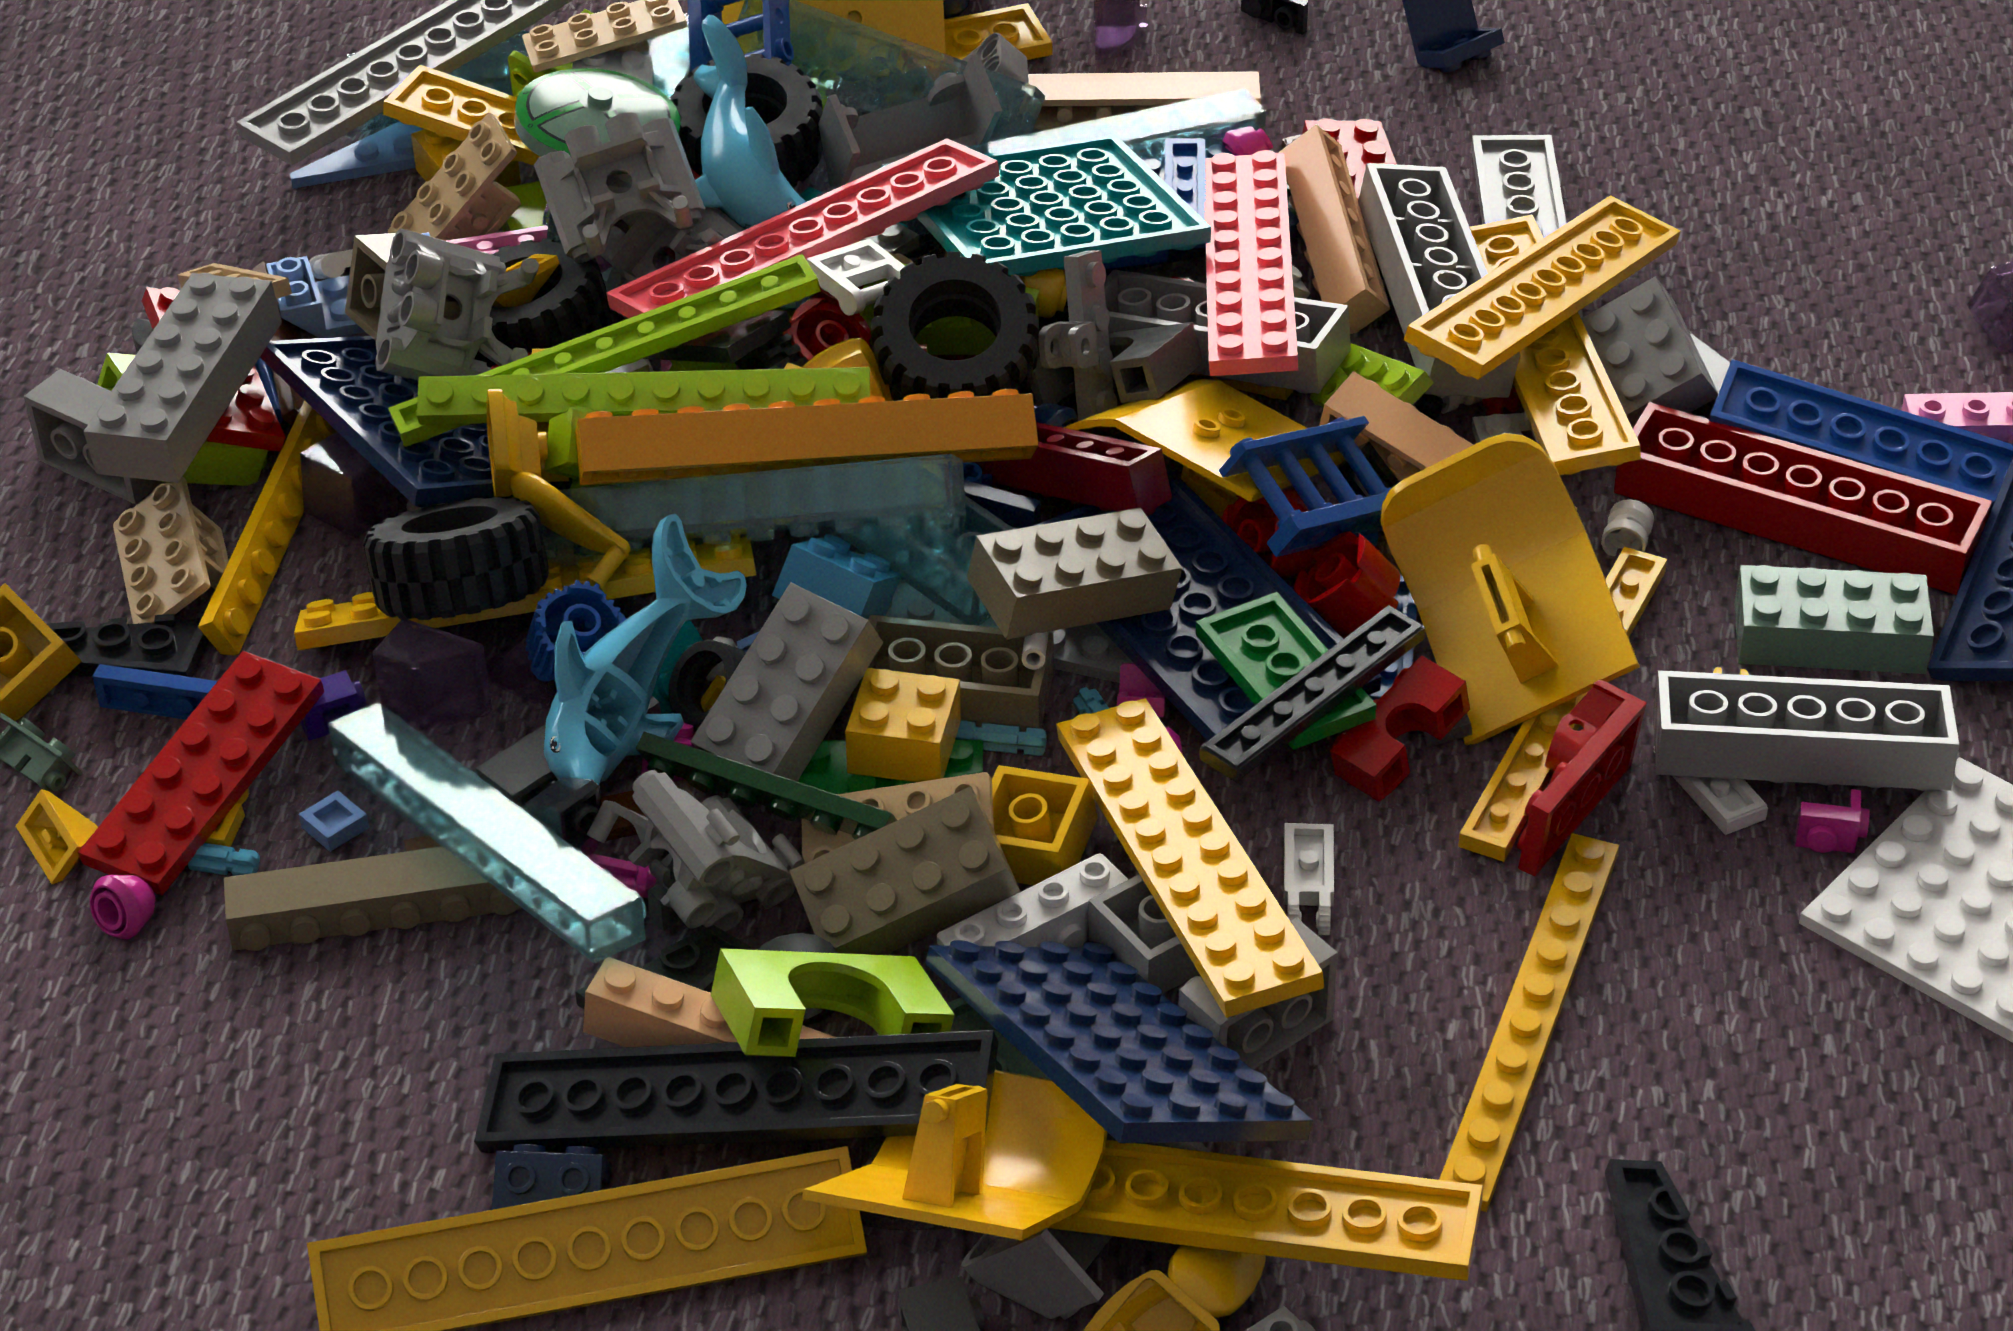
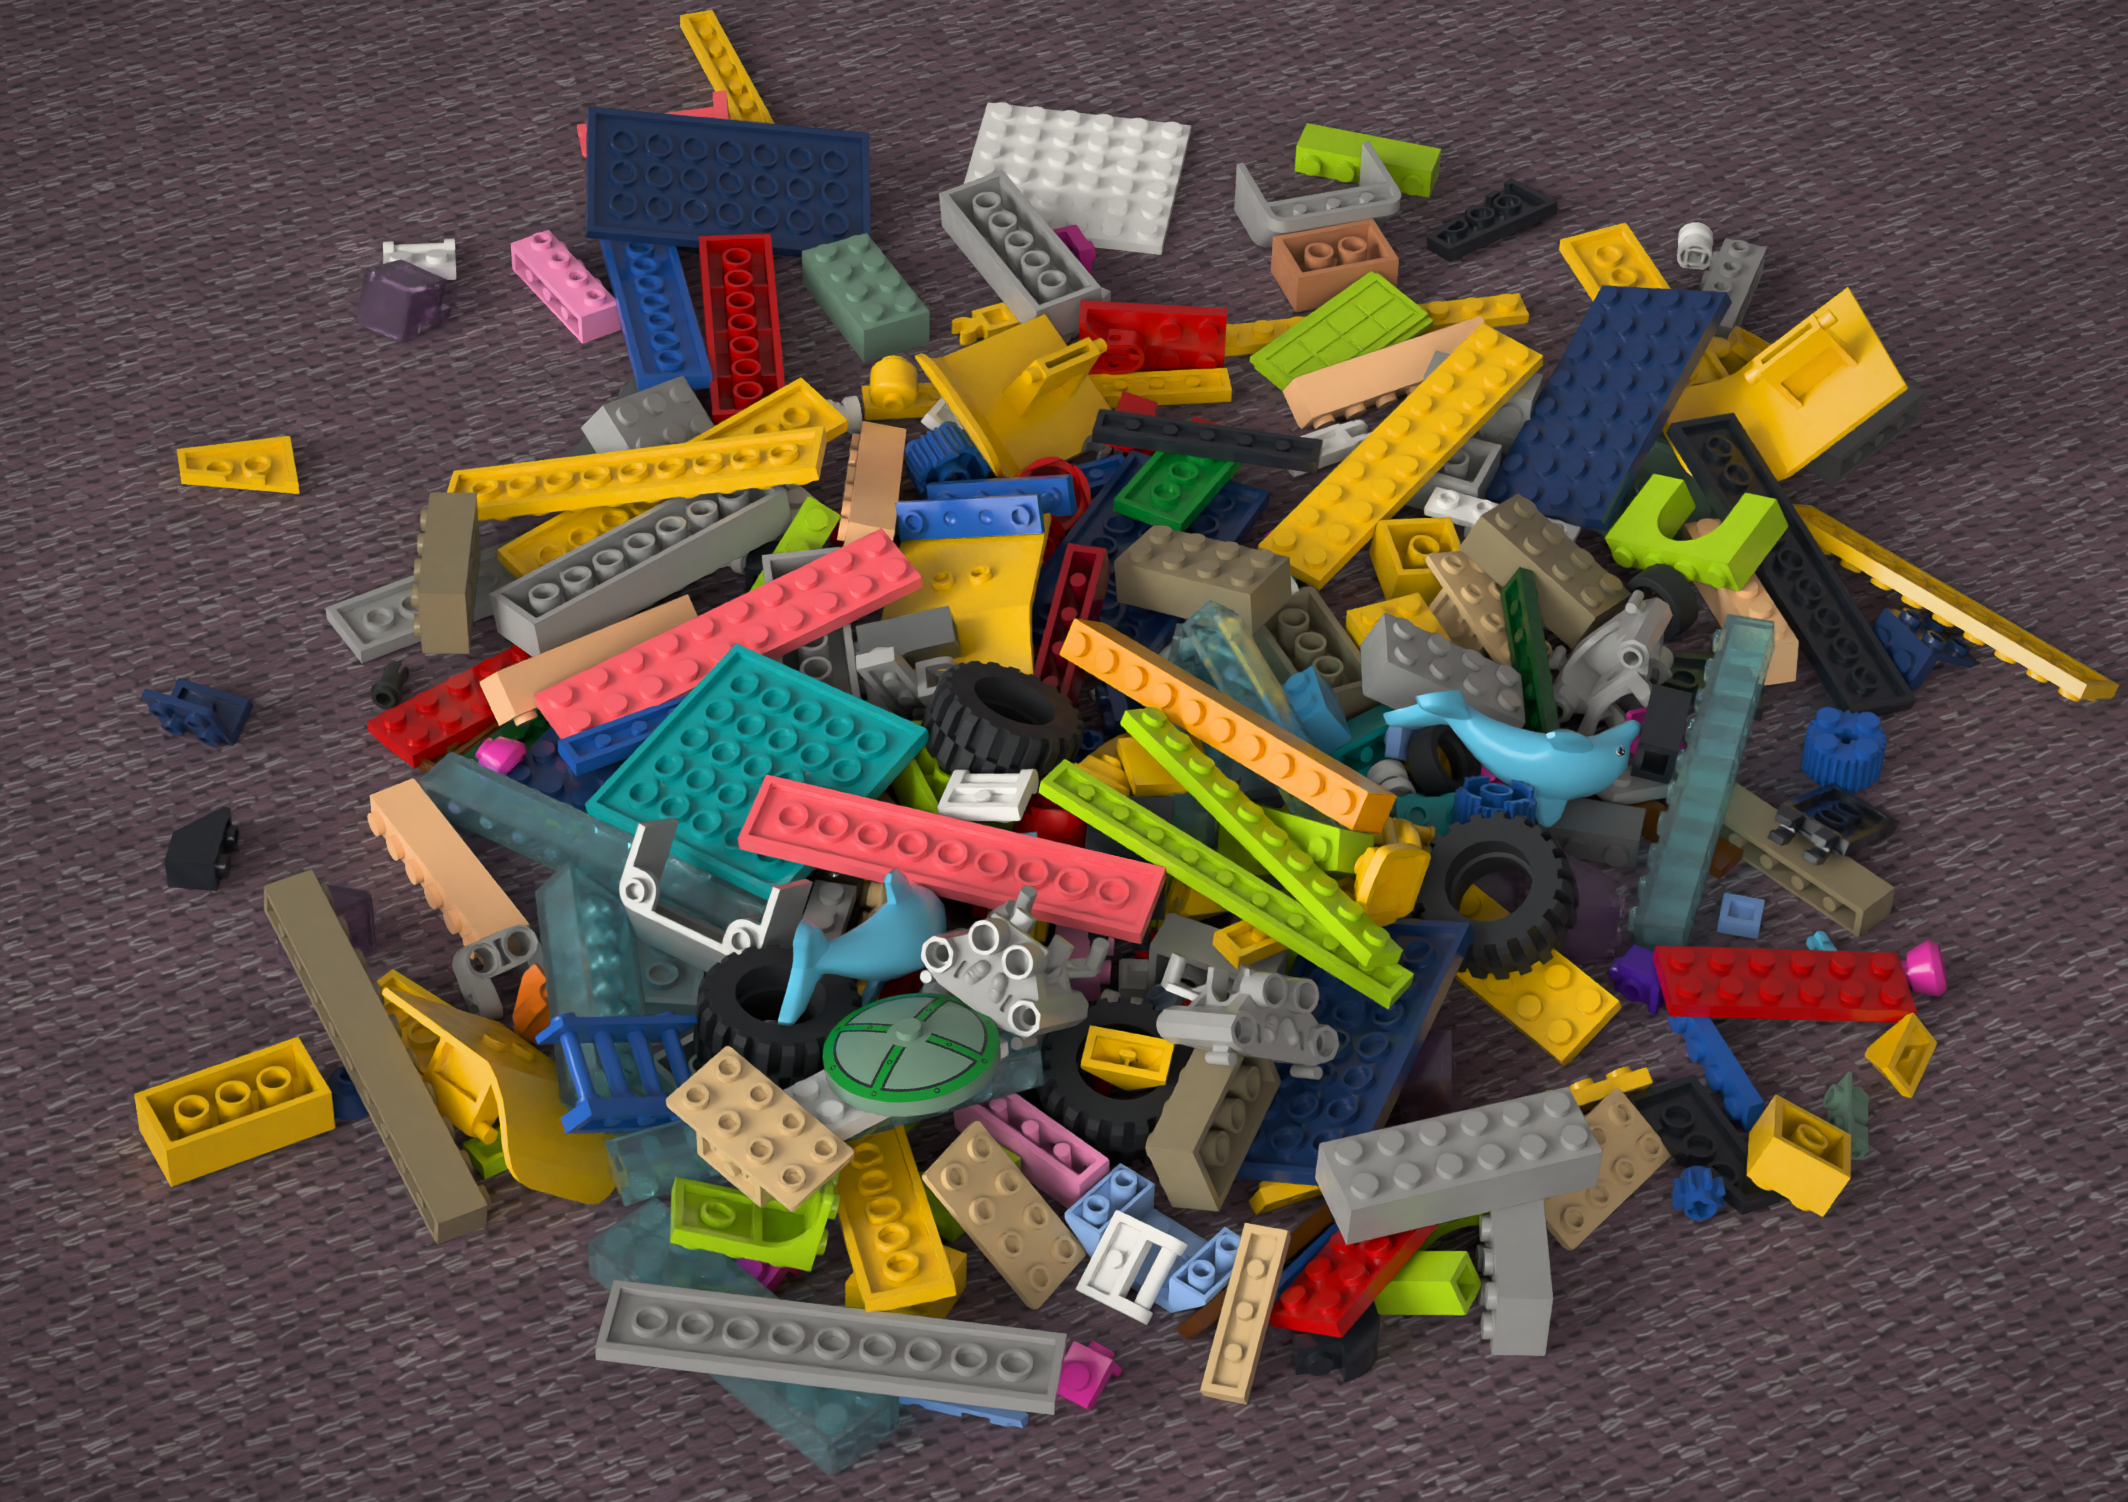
camera: 125 degrees left, 0 degrees up
(65, 601) = (1698, 1193): none -> blue gear
(295, 220) = (1086, 1373): none -> dark pink bracket
(357, 931) = (1833, 821): none -> black tile
(450, 1014) = (1844, 749): none -> blue brick
(1388, 979) = (1370, 378): none -> light nougat brick
(1419, 146) = (387, 690): none -> pearl dark grey pin
(1488, 970) = (1351, 324): none -> lime piece
(1509, 164) = (447, 573): none -> dark tan brick
(1628, 552) = (893, 382): none -> yellow head
(1640, 1026) = (1327, 260): none -> nougat brick
(1762, 1003) = (1374, 198): none -> light grey windscreen
(1814, 158) = (241, 465): none -> yellow wing
(1874, 1190) = (1338, 154): none -> lime brick

